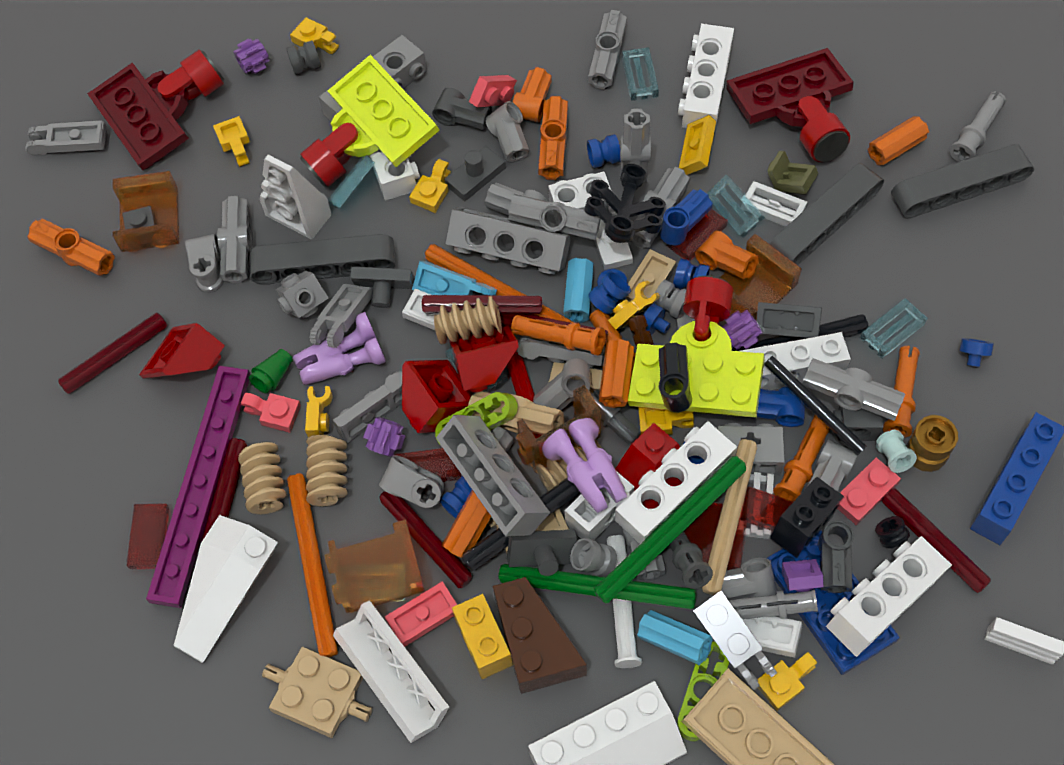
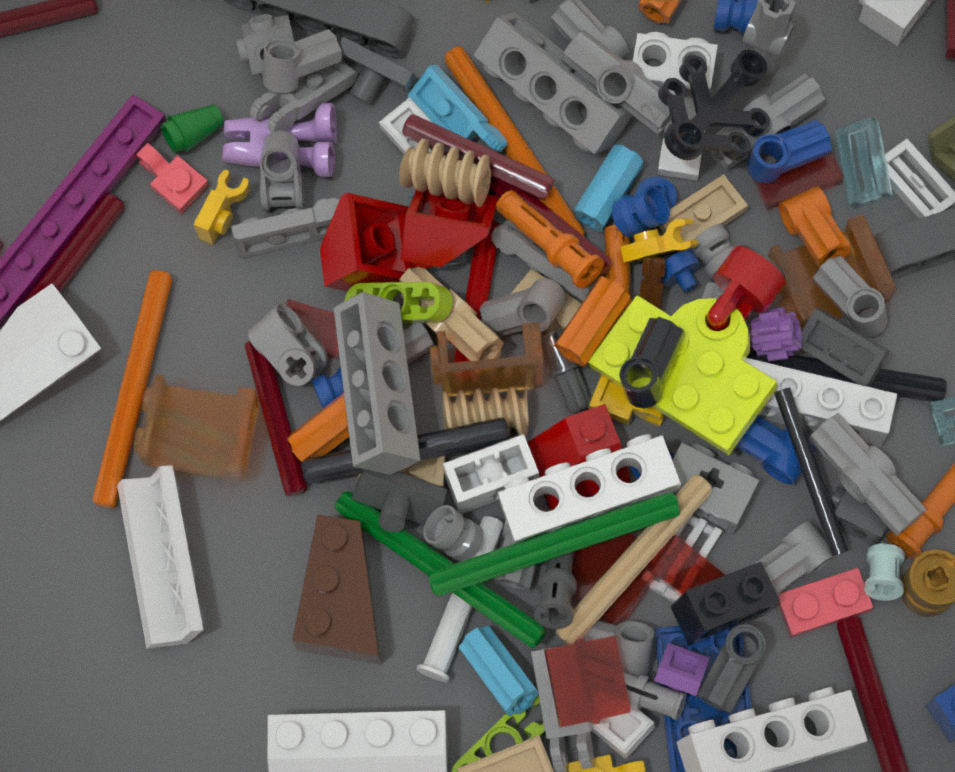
camera: 25 degrees right, 10 degrees up
(184, 351) = (97, 60): red slope -> none
(261, 478) = (118, 257): tan piece -> none
(316, 692) = (71, 541): tan plate -> none
(323, 293) = (289, 60): none -> light grey piece
(325, 470) = (196, 282): tan piece -> none
(352, 377) = (281, 179): none -> light grey piece
(384, 436) = (283, 272): medium lavender gear -> none
(422, 614) = (228, 507): coral plate -> none
(482, 636) = (280, 564): yellow brick -> none
(587, 475) = (498, 436): lavender piece -> none
(685, 272) = (756, 231): blue wheel -> none
(697, 144) = (860, 57): yellow plate -> none
(744, 611) = (587, 681): none -> clear red piece
(775, 285) = (851, 295): none -> light grey piece
(800, 468) = (755, 539): orange pin -> none
(892, 532) = (824, 667): black bush -> none

